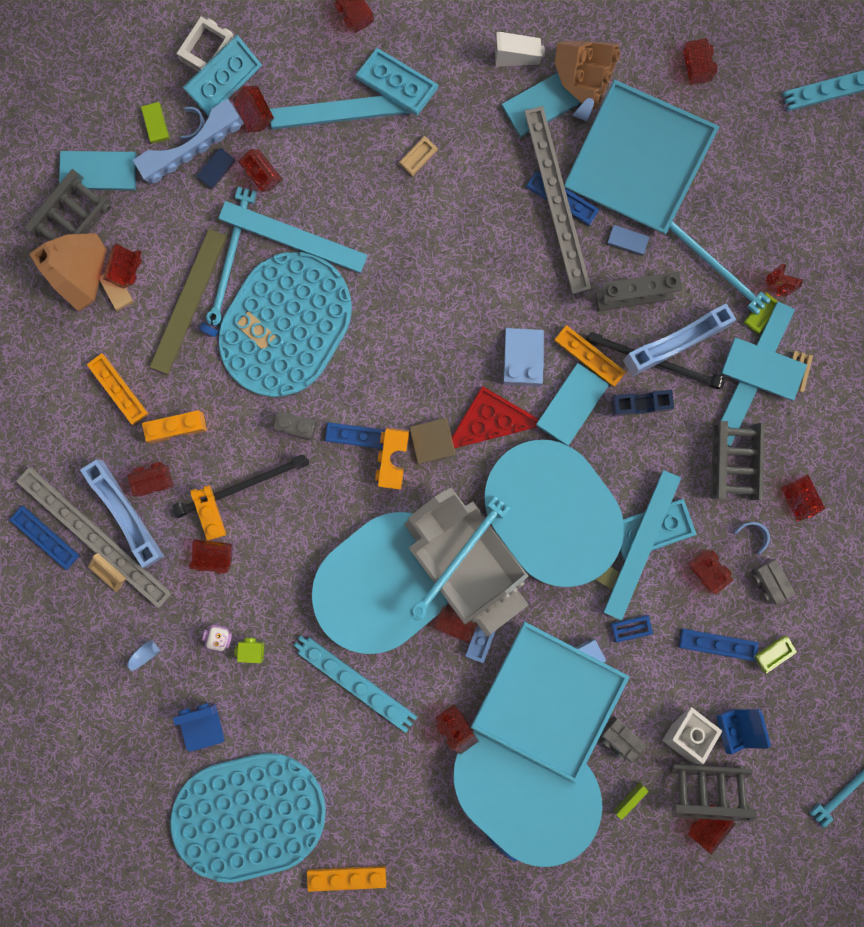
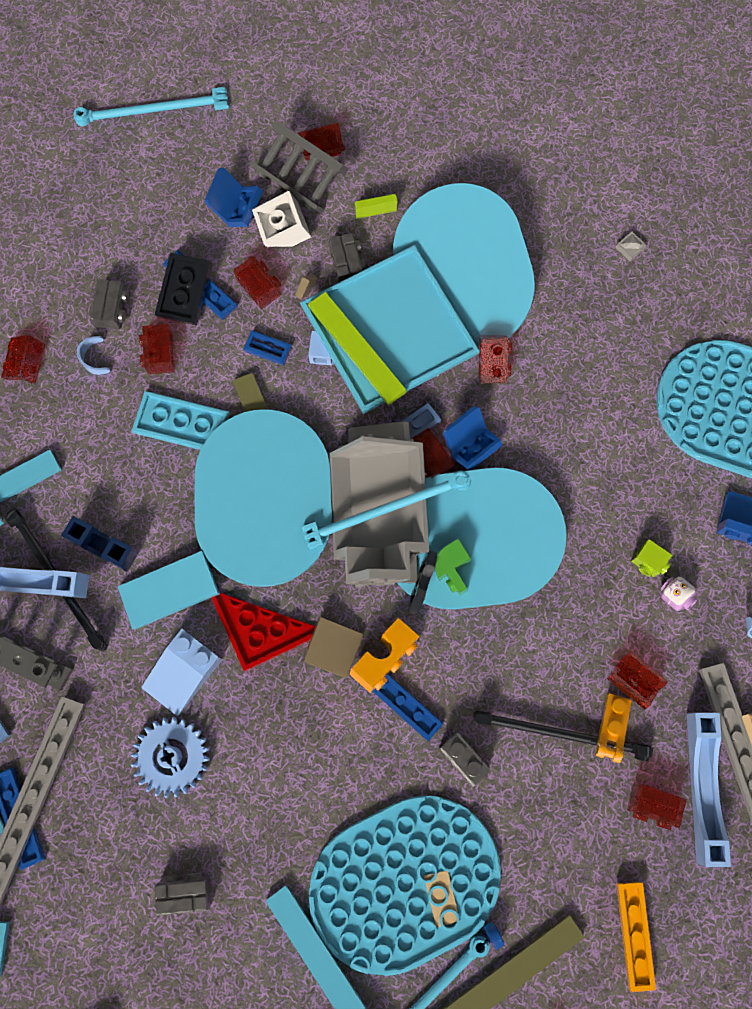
camera: 150 degrees left, 10 degrees down
(172, 426) = (597, 847): light orange arch -> none
(346, 878) = (680, 300): light orange plate -> none
(355, 682) = (564, 466): medium azure hinge -> none
(391, 549) = (448, 562): none -> bright green brick
(398, 518) = (425, 572): none -> black tile
(411, 901) = (631, 246): none -> light grey tile
(418, 156) = (132, 980): tan tile -> none
(422, 223) = (182, 895): none -> flat silver brick
(433, 654) = (470, 439): none -> blue bracket
(506, 309) = (180, 778): none -> light blue gear
(562, 667) = (357, 348): none -> lime tile
(590, 356) = (115, 628): light orange plate -> none
(637, 697) = (306, 285): none -> dark tan tile
(642, 545) = (200, 413): medium azure tile -> none
(676, 675) = (257, 282): none -> clear red brick
(720, 469) = (68, 442): dark grey fence -> none
(726, 630) = (183, 289): none -> black plate
(775, 654) = (155, 244): lime tile -> none

